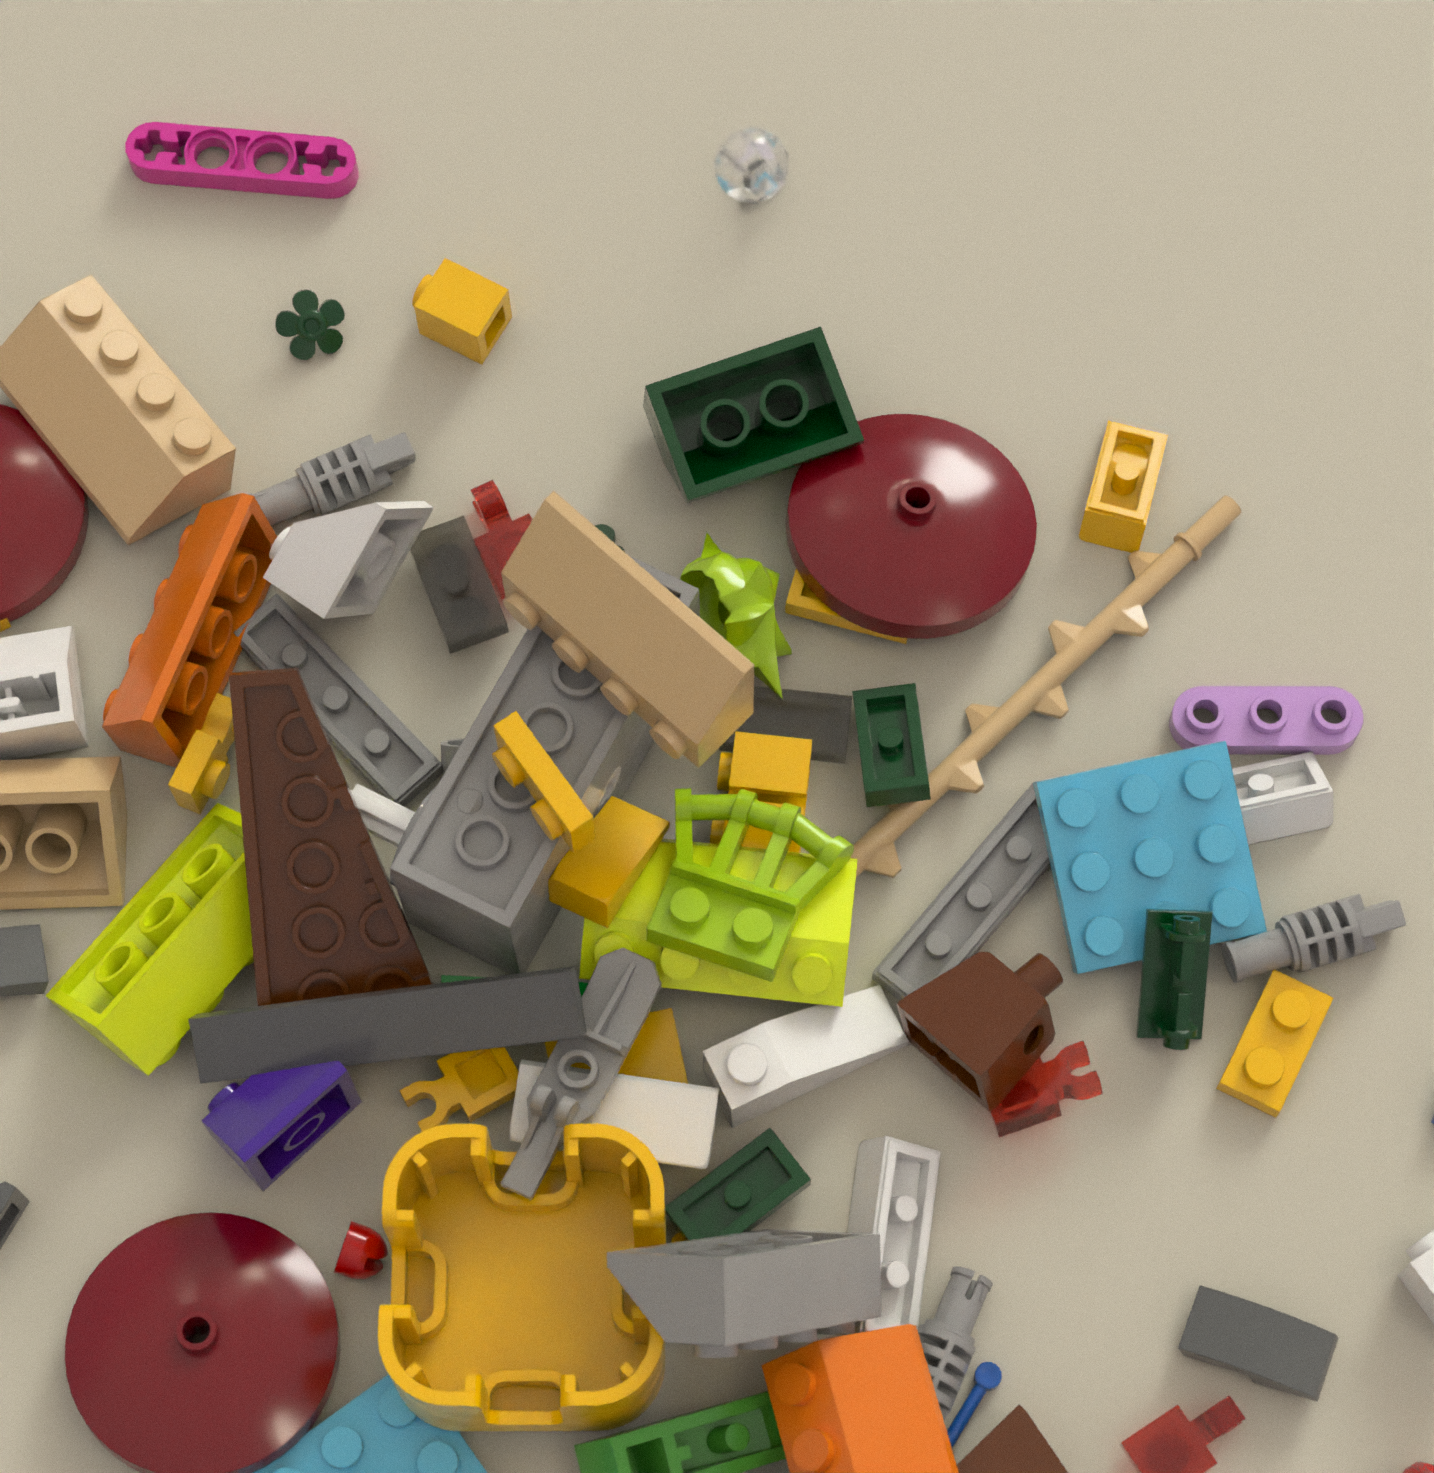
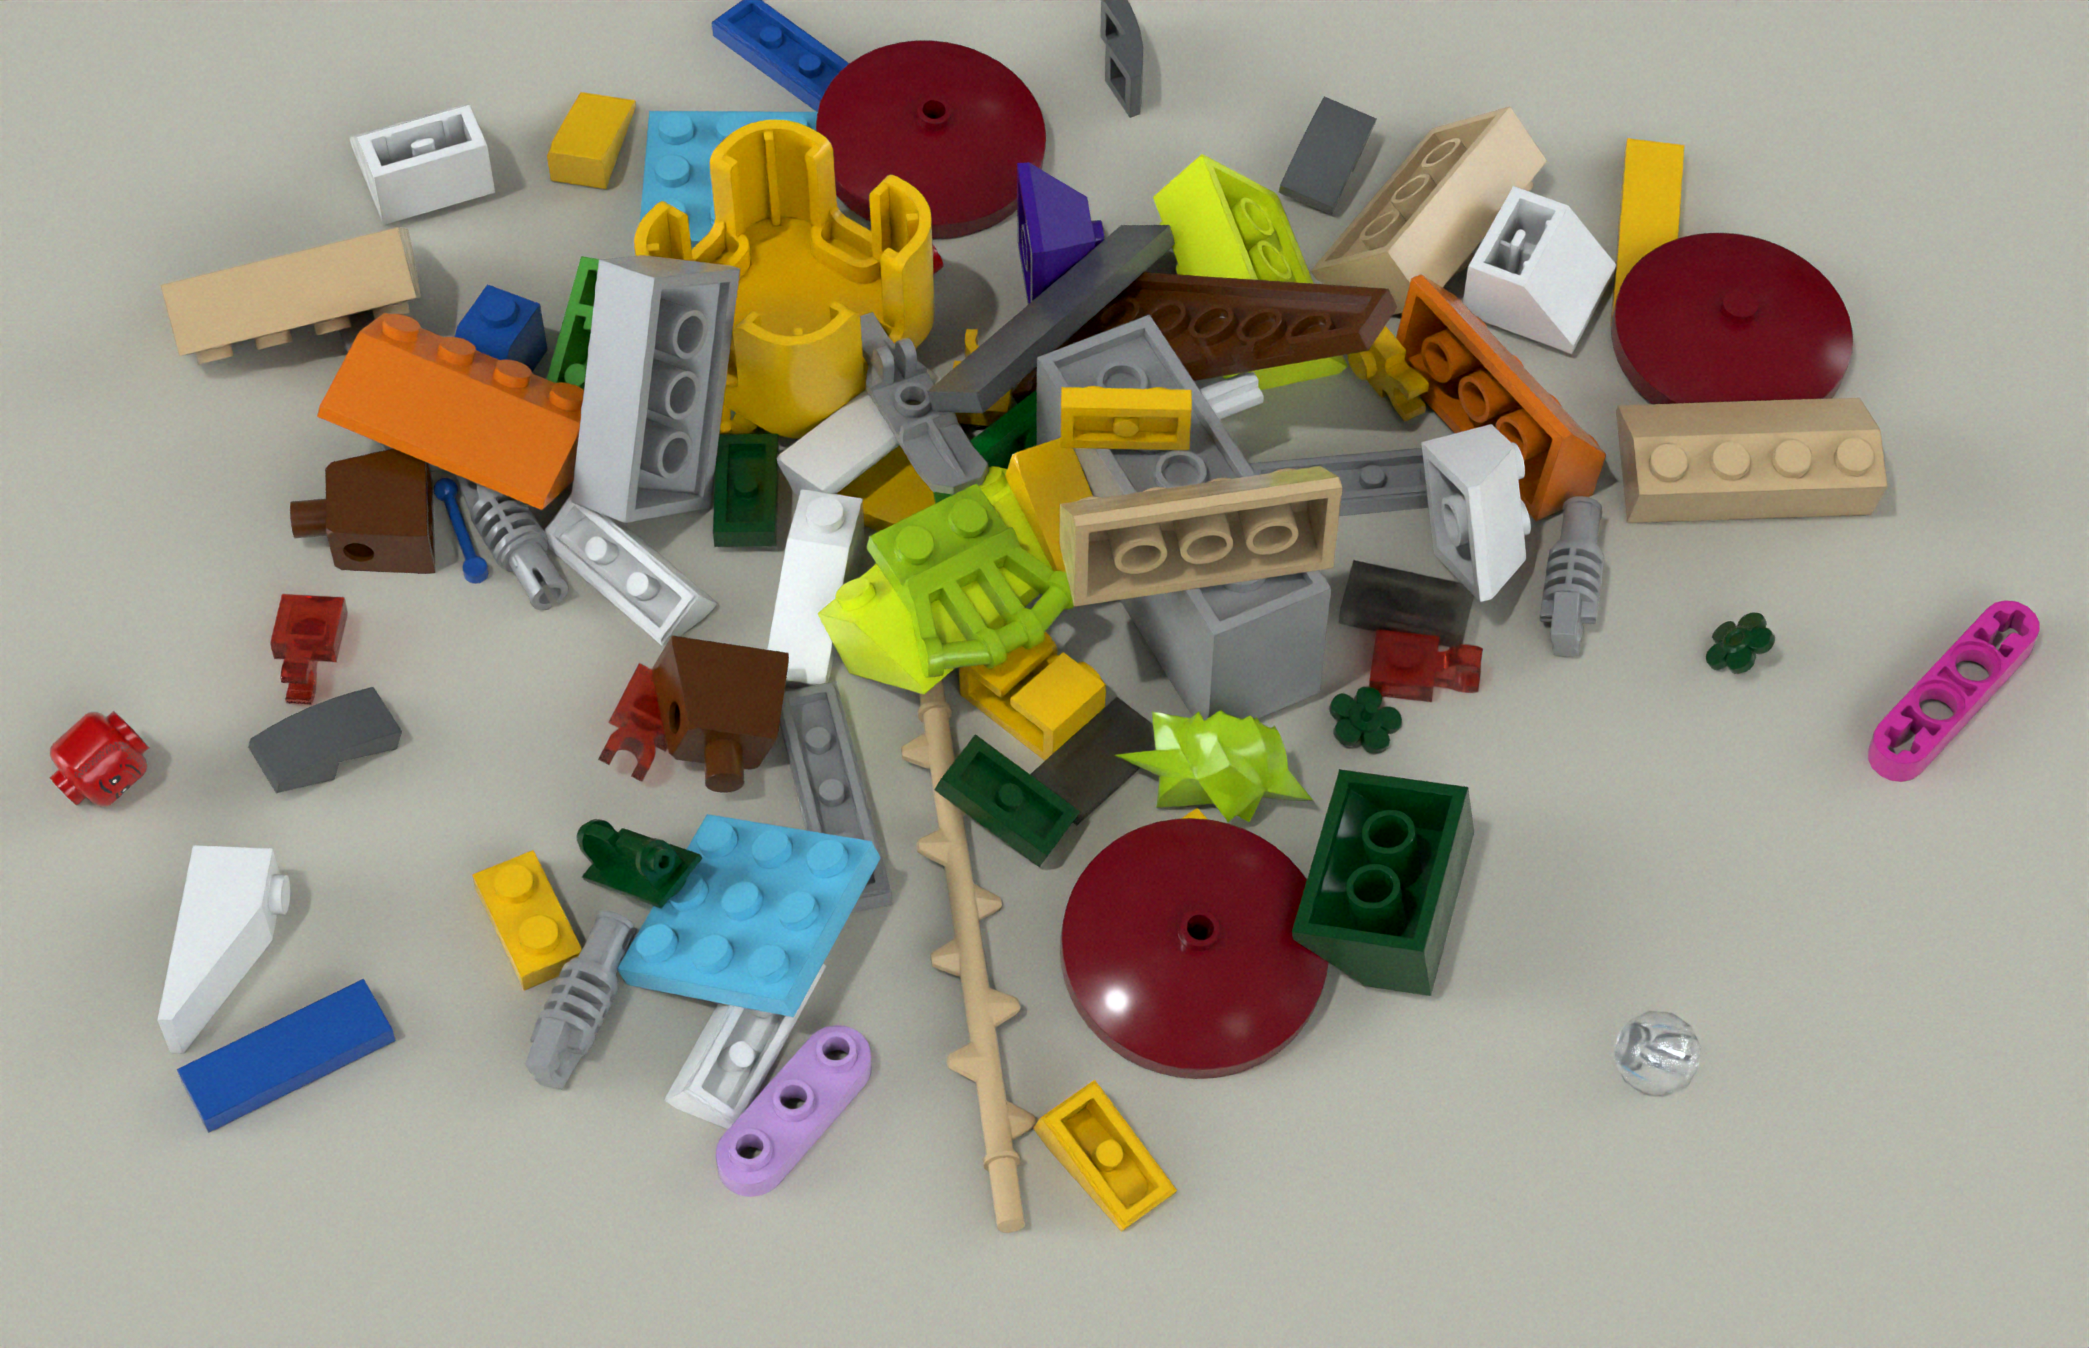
camera: 125 degrees right, 15 degrees down
(462, 310) = (1669, 749): yellow brick -> none

